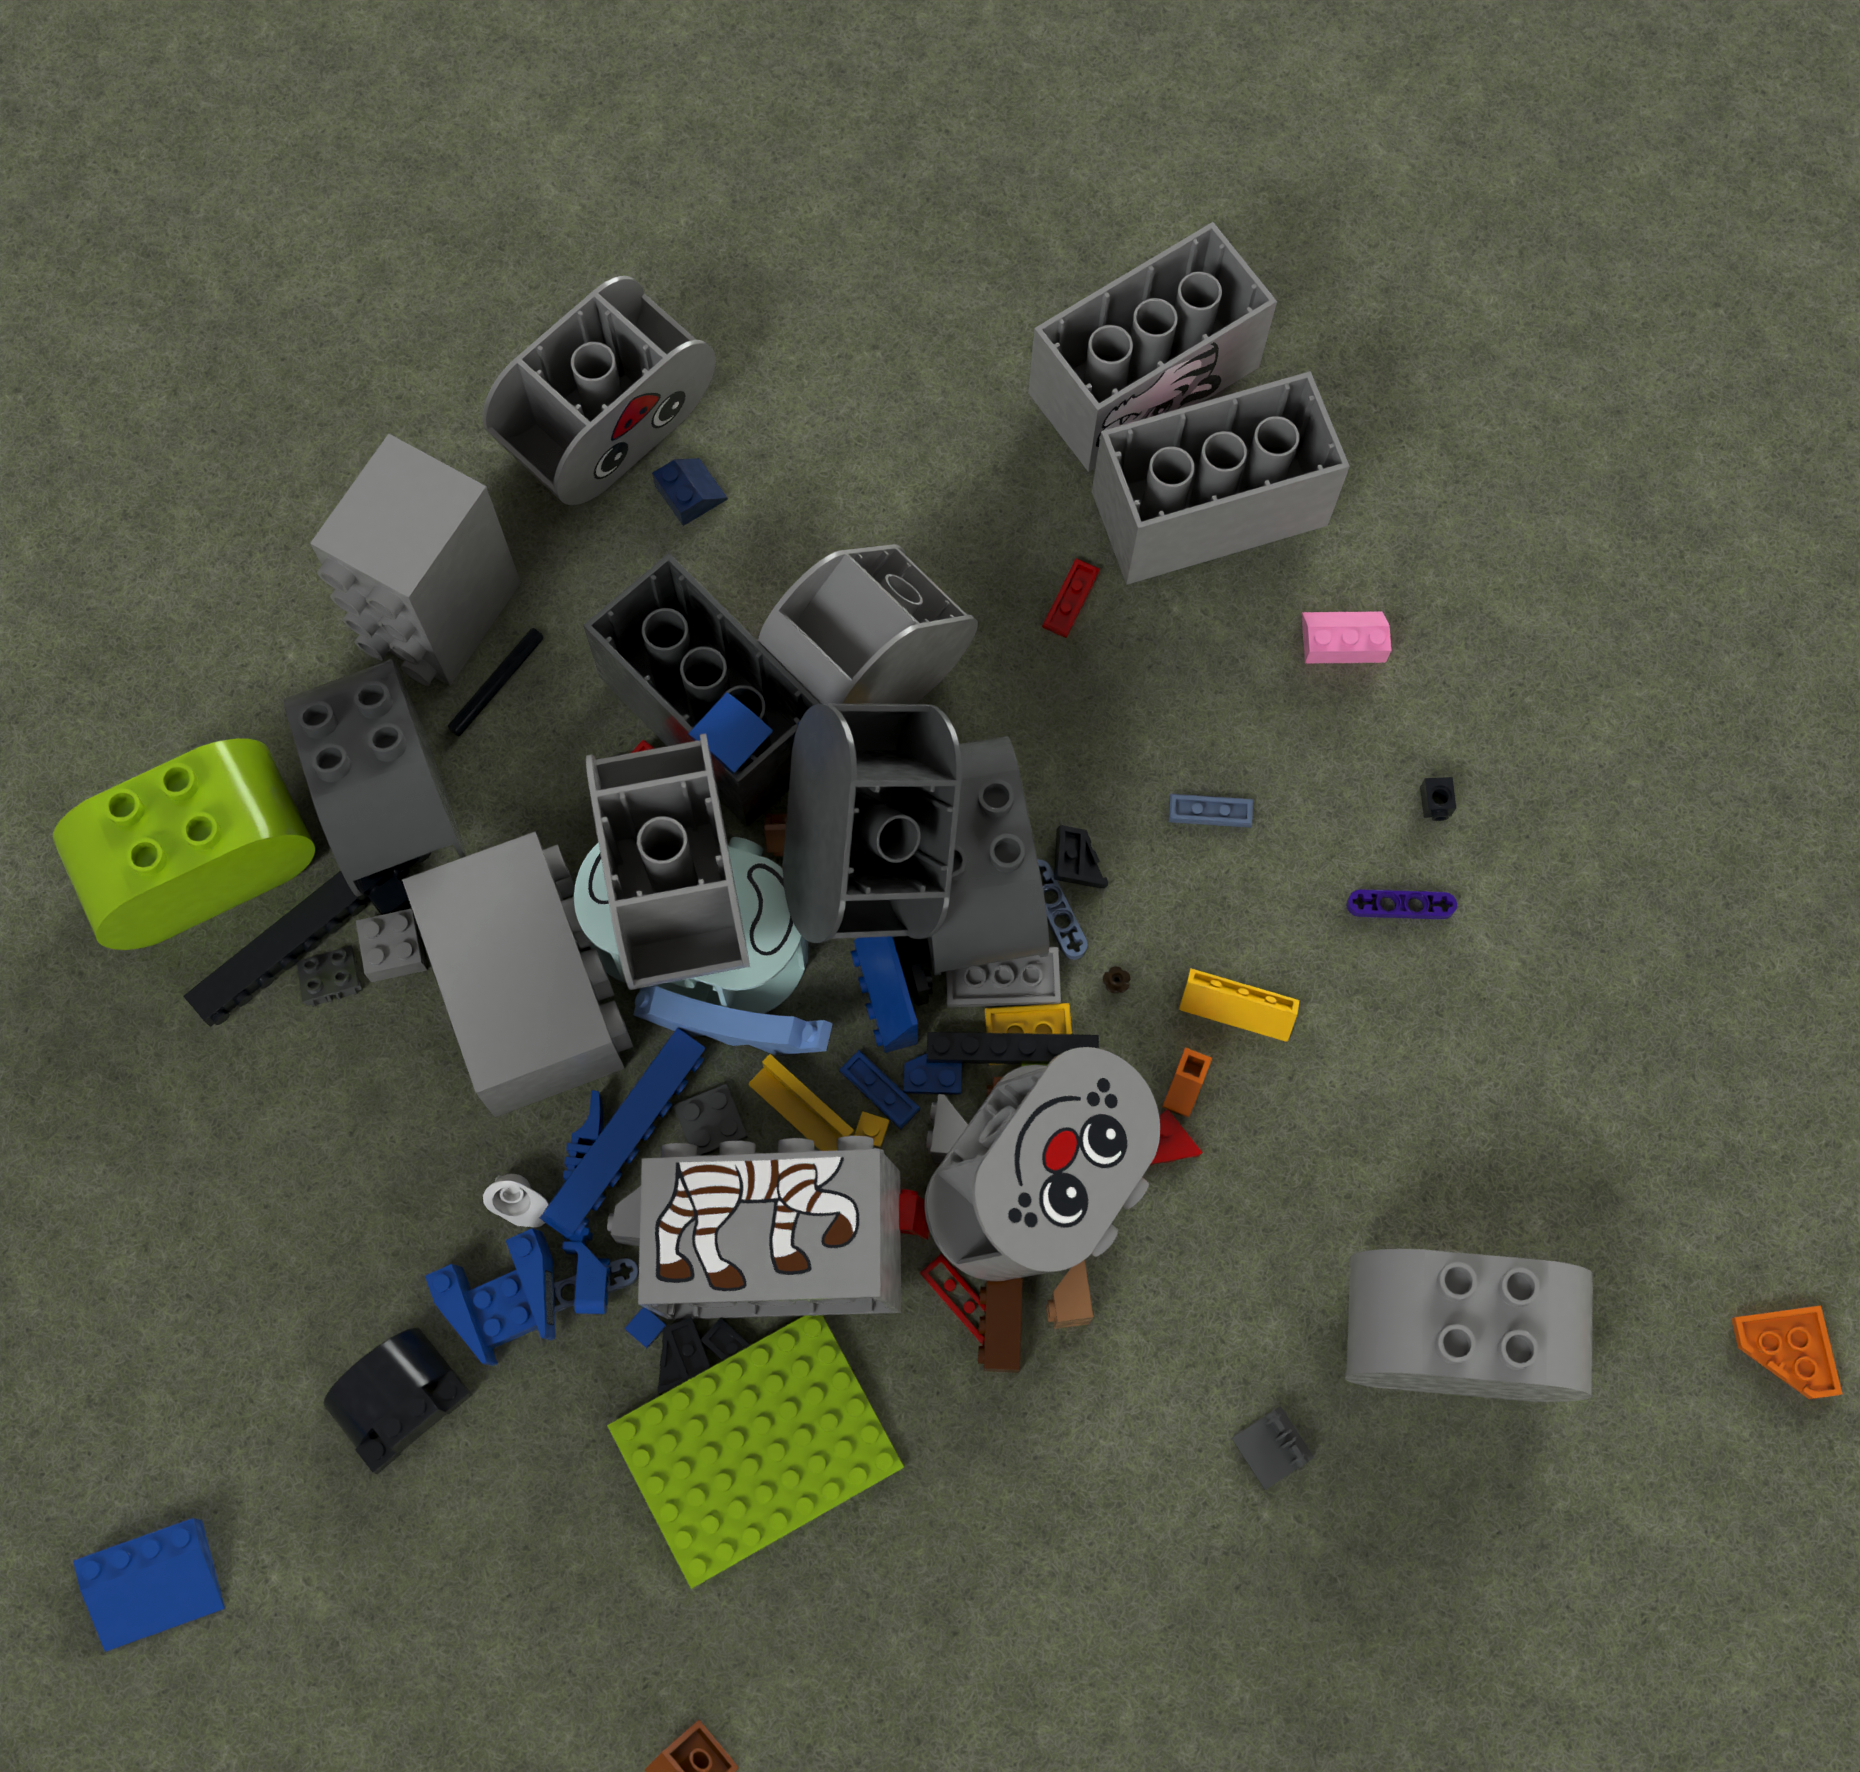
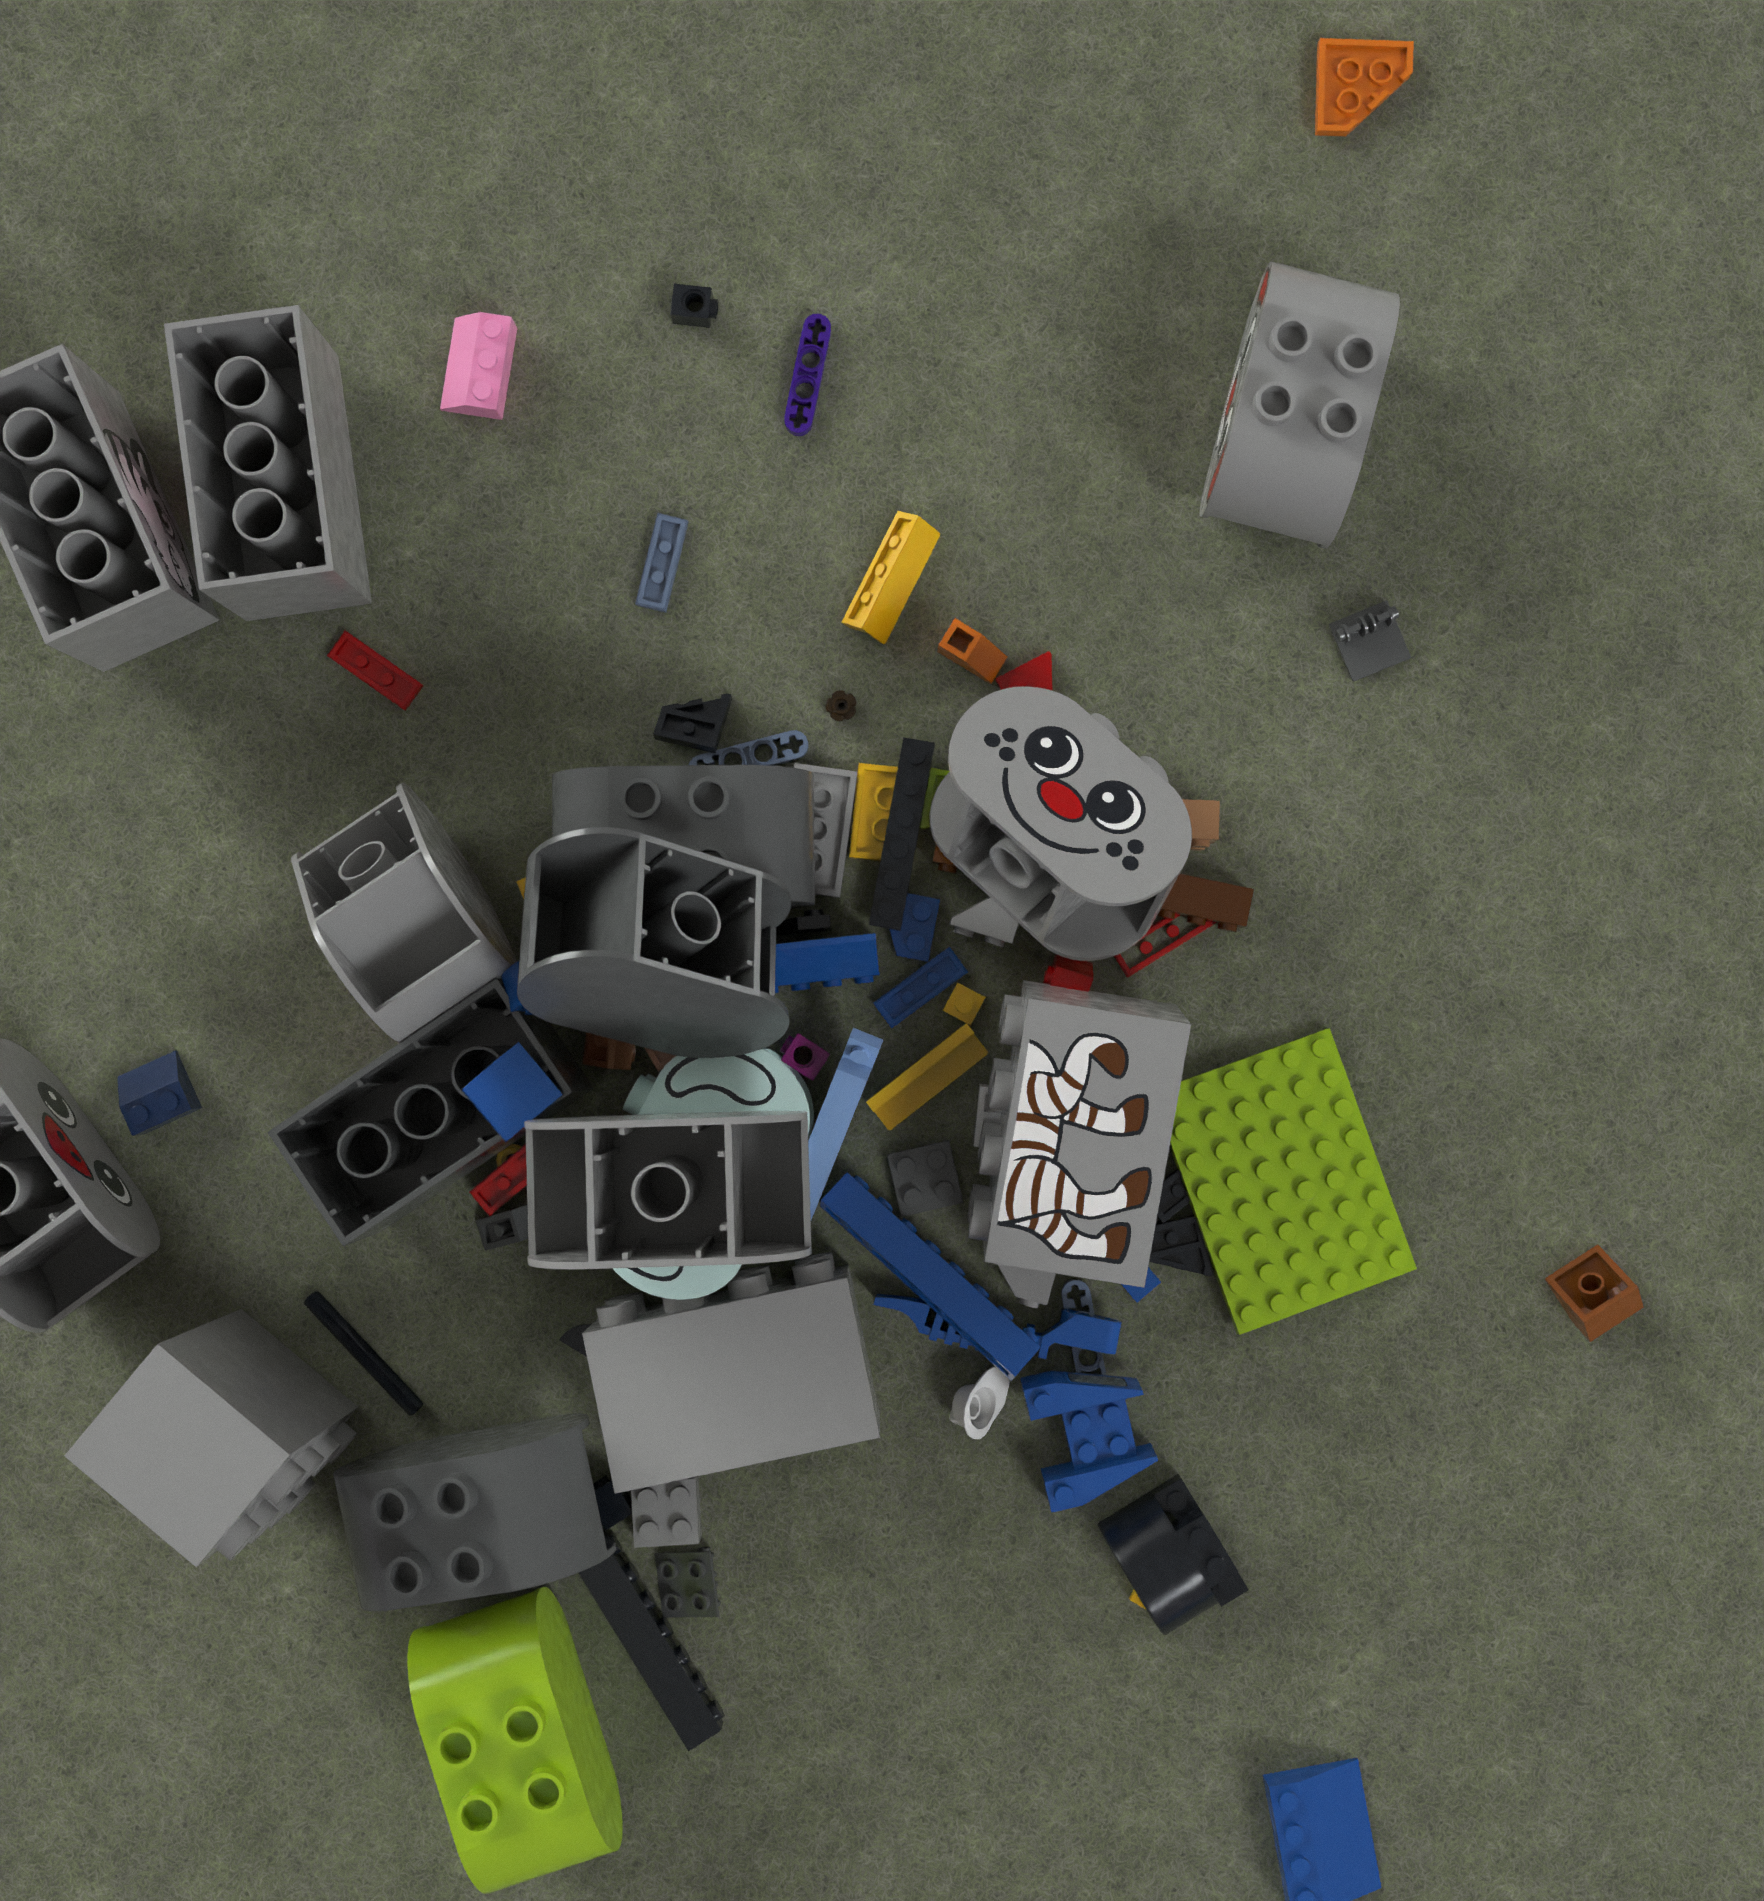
camera: 80 degrees left, 15 degrees up
(798, 1009) = (819, 1056): none -> magenta brick

